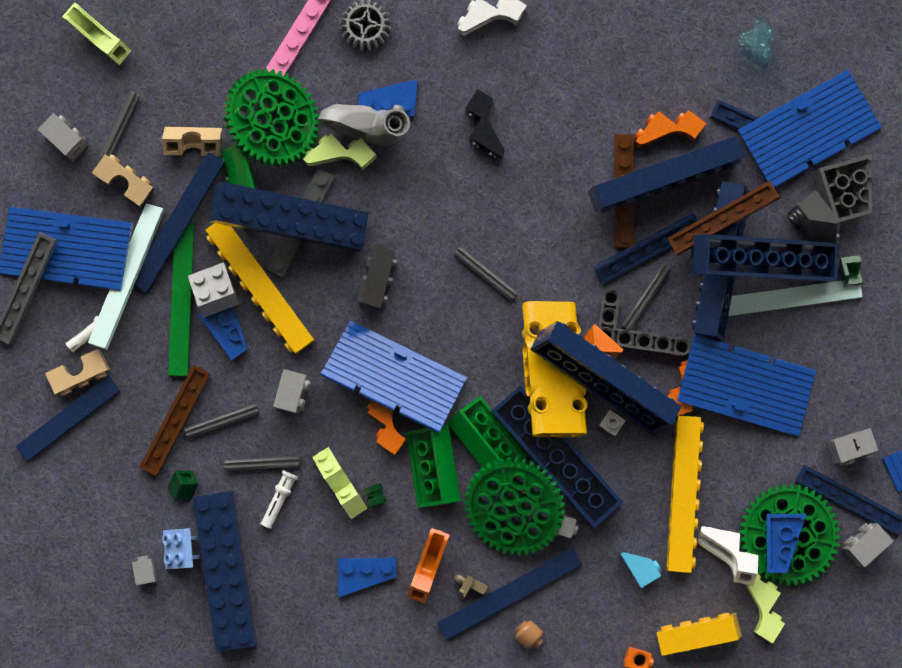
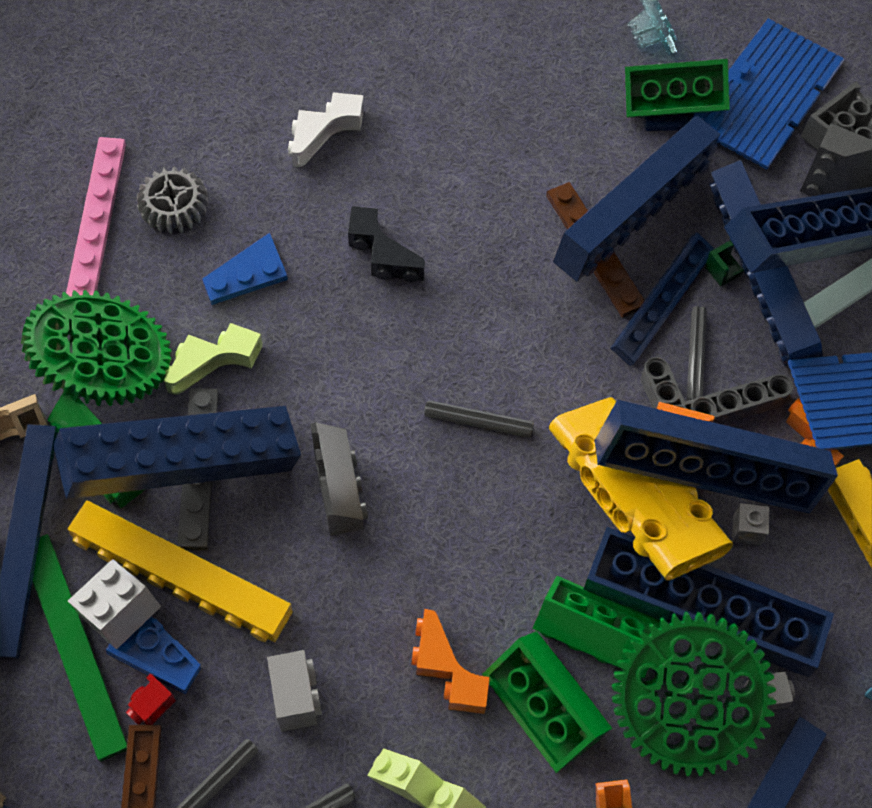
camera: 30 degrees left, 20 degrees down
(209, 356) = (149, 702): none -> red brick
(363, 122) = (245, 301): light grey piece -> none
(375, 495) = (486, 783): dark green wheel -> none
(394, 376) = (428, 601): door -> none
(660, 127) = (600, 157): orange arch -> none
(725, 217) = (747, 193): reddish brown plate -> none
(742, 102) = (677, 88): none -> green slope

